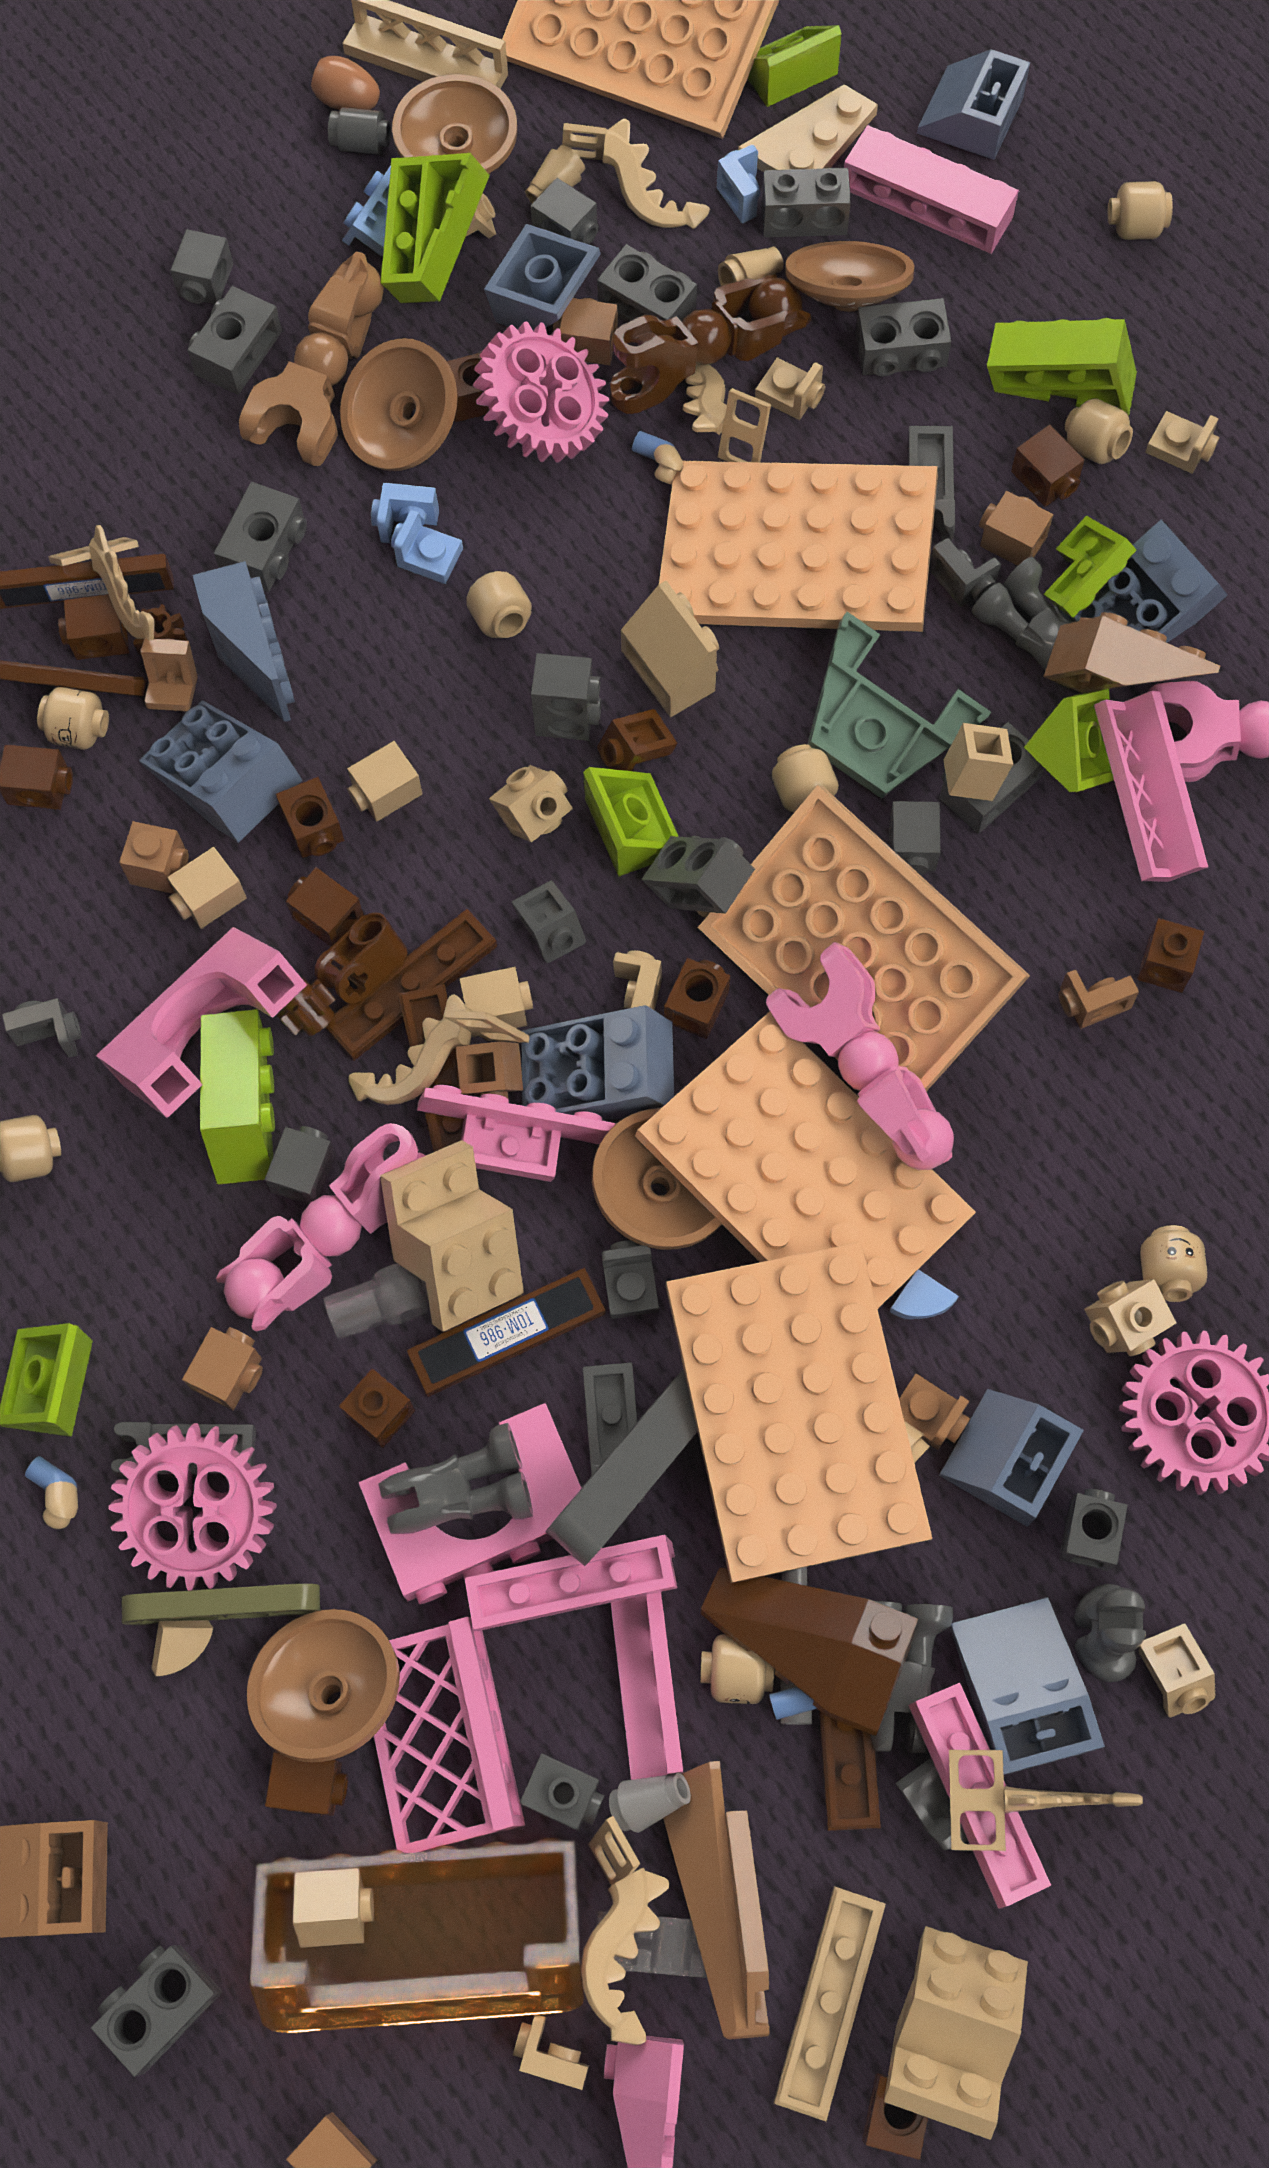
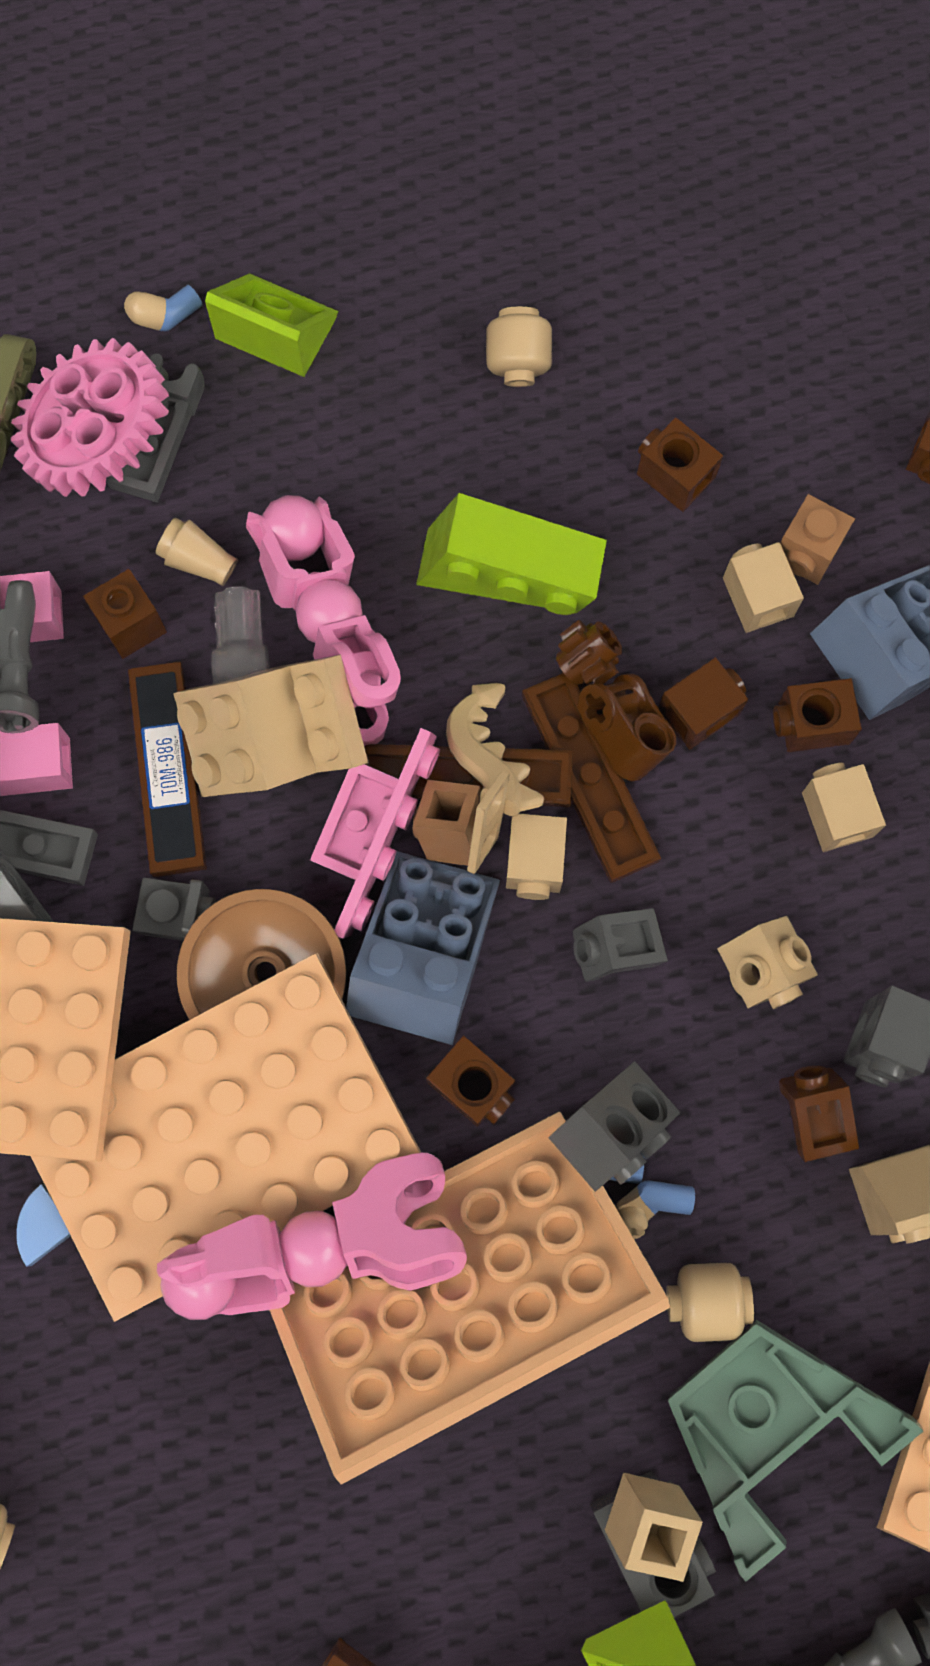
camera: 105 degrees right, 5 degrees up
(41, 1020) = (650, 409): dark grey bracket -> none
(102, 966) = (678, 484): none -> reddish brown brick
(224, 1367) = (222, 481): medium nougat brick -> none
(227, 975) = (577, 475): bright pink arch -> none
(298, 1374) = (194, 552): none -> tan cone
(301, 1164) = (412, 606): dark grey brick -> none
(628, 816) = (722, 1076): lime slope -> none
(643, 969) = (495, 1022): tan bracket -> none
(737, 831) = (650, 1198): none -> arm
(916, 834) = (597, 1415): dark grey brick -> none
(1101, 1002) = (316, 1582): medium nougat bracket -> none

